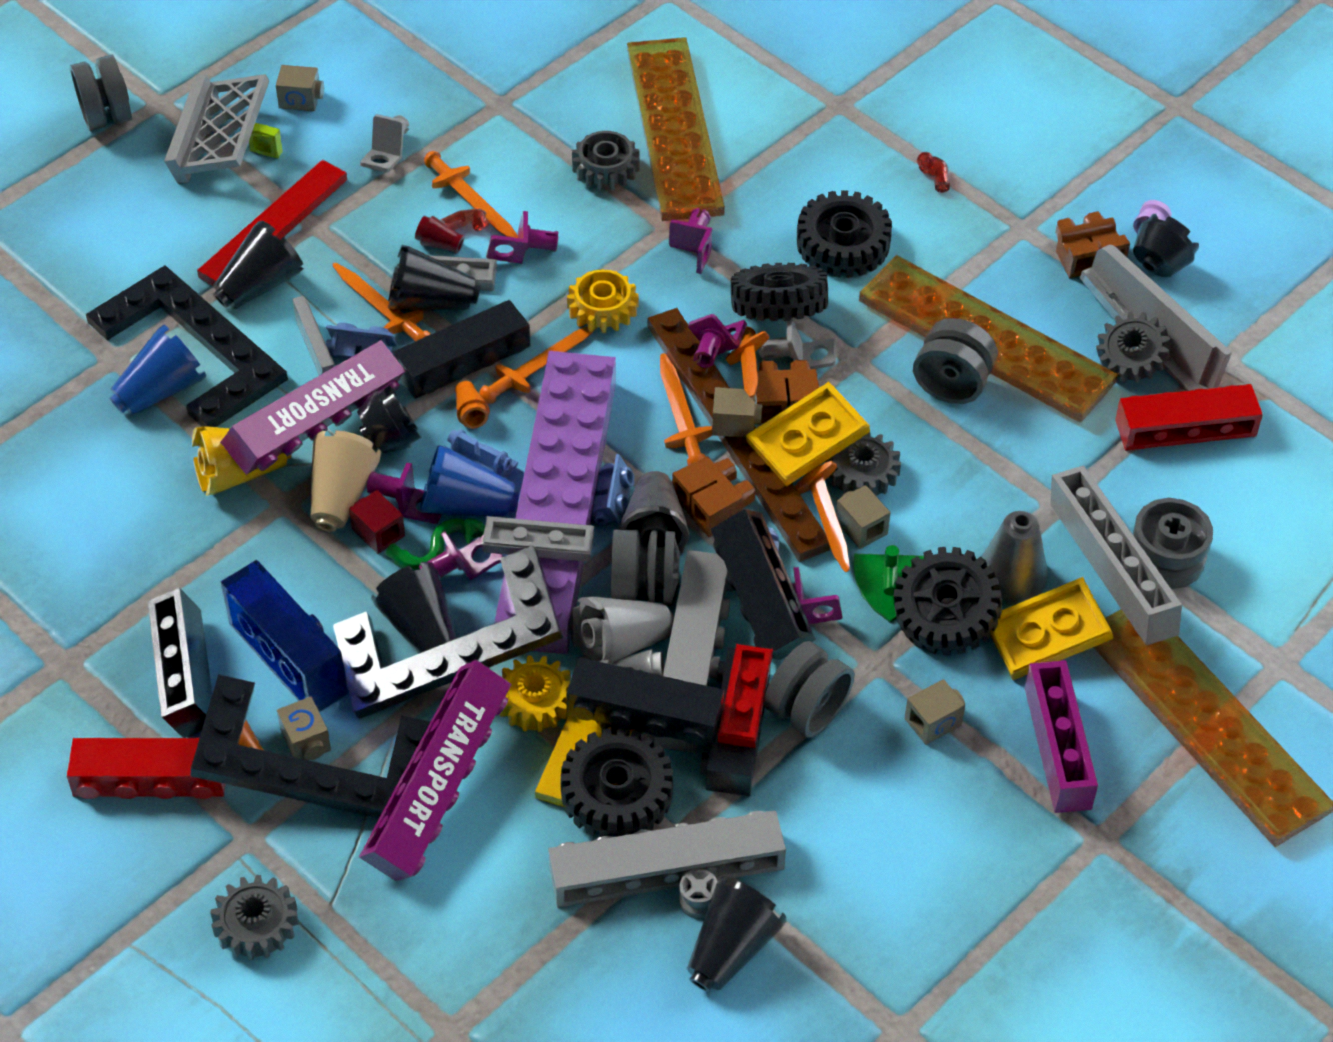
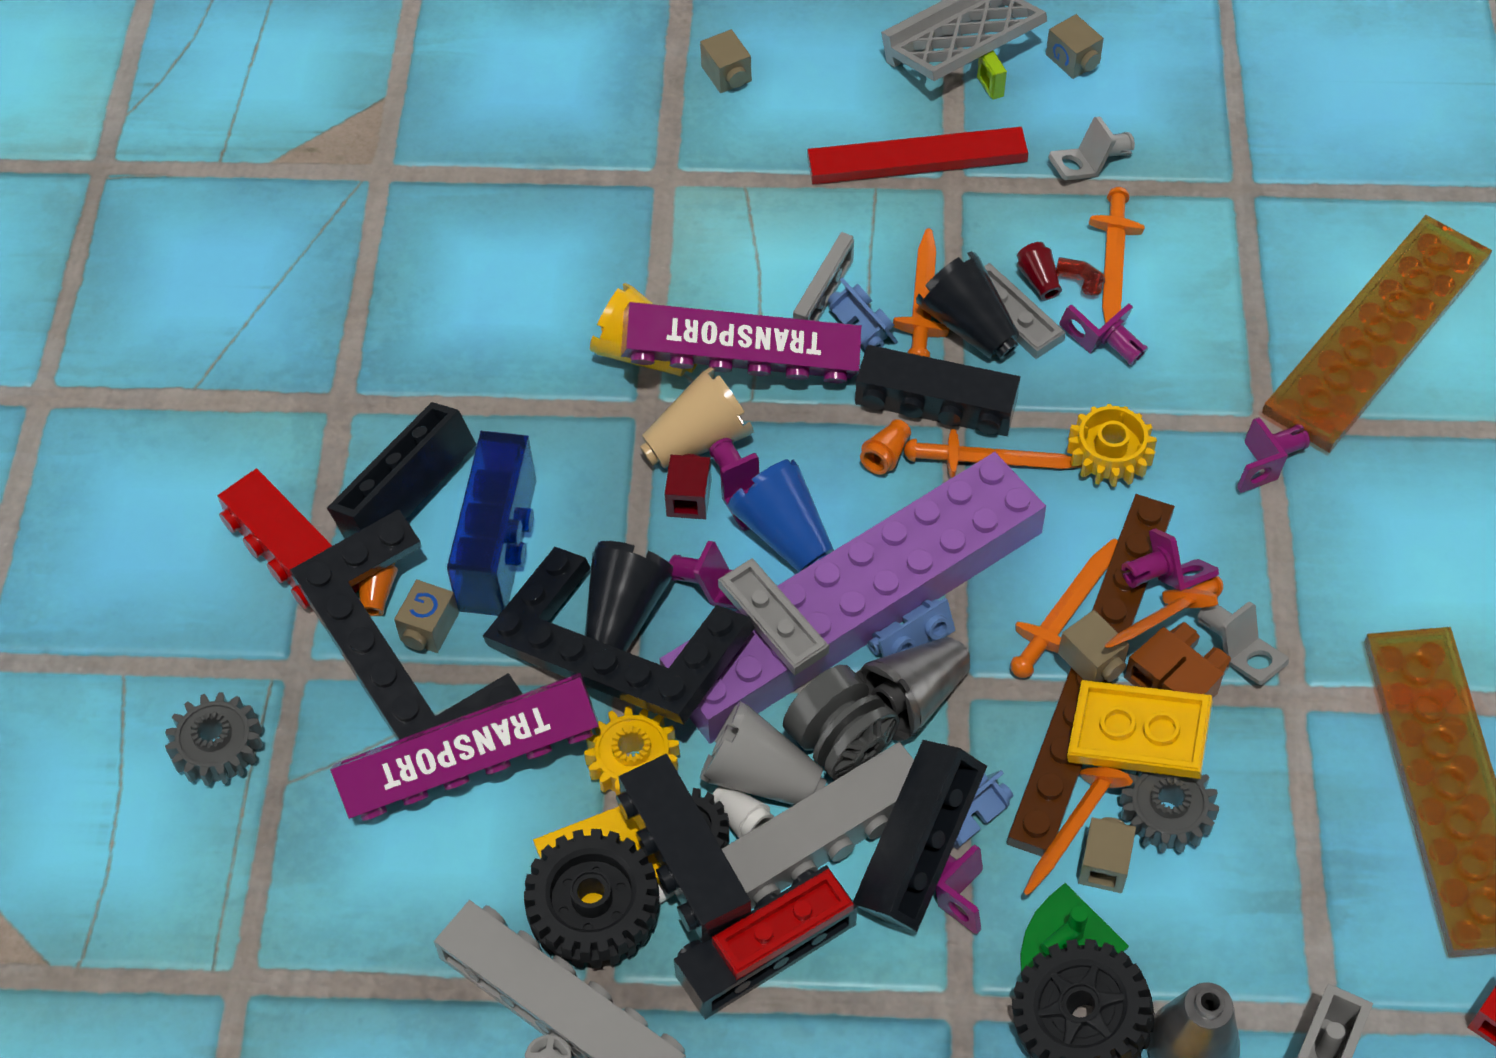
camera: 50 degrees right, 5 degrees up
(71, 254) = (726, 61): none -> dark tan brick
(156, 373) = (668, 213): blue cone -> none
(253, 369) = (756, 274): black plate -> none
(256, 267) = (848, 182): black cone -> none
(387, 422) = (793, 404): black cone -> none
(470, 528) = (677, 544): green animal -> none
(481, 453) = (838, 500): medium blue hinge -> none
(605, 159) = (1272, 313): dark grey gear -> none
(708, 494) = (989, 708): dark orange hips -> none
(779, 291) = (1277, 568): black wheel -> none
(809, 689) = (847, 972): dark grey wheel -> none
(844, 233) = (1395, 569): black wheel -> none
(955, 361) = (1373, 782): dark grey wheel -> none

